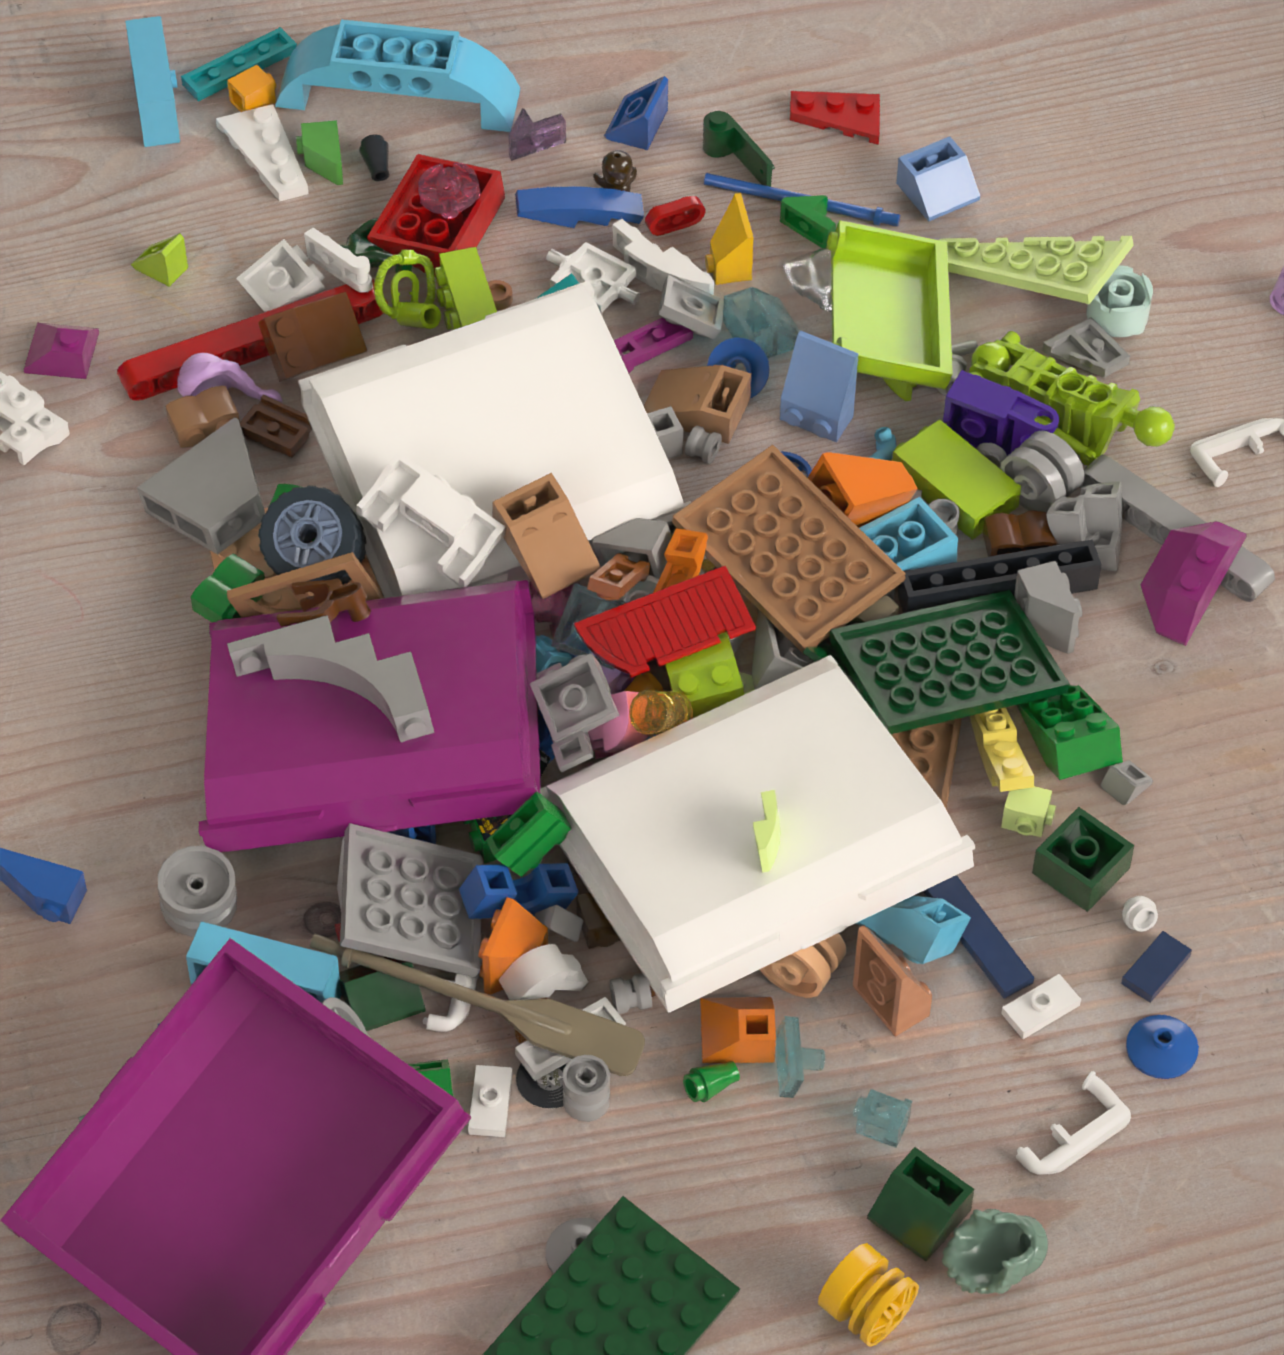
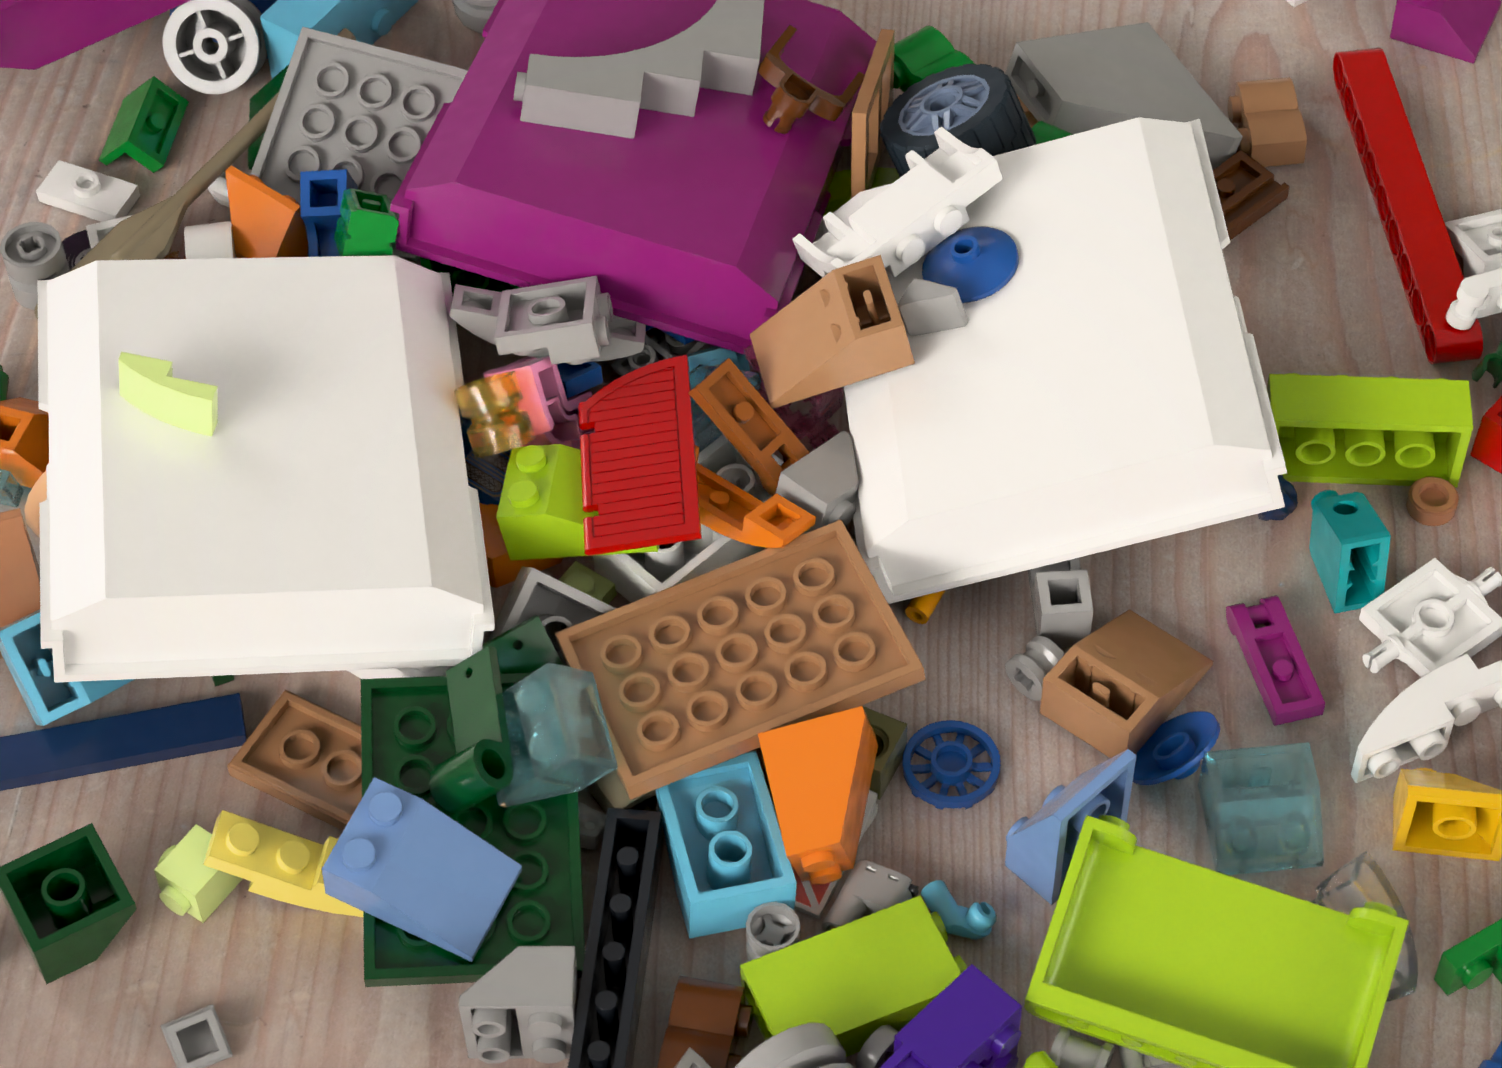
camera: 110 degrees right, 0 degrees up
(207, 371) = (1335, 126): lavender hair -> none
(312, 336) = (1373, 242): reddish brown slope -> none
(408, 313) = (1417, 367): lime piece -> none
(478, 473) = (973, 261): none -> blue dish
(510, 478) = (931, 308): none -> light grey slope
(691, 308) = (1317, 705): light grey plate -> none
(890, 620) = (555, 735): none -> clear light blue slope
(906, 648) = (480, 735): none -> dark green door
(1000, 667) = (419, 870): none -> medium blue slope
(1072, 733) = (303, 984): green slope -> none

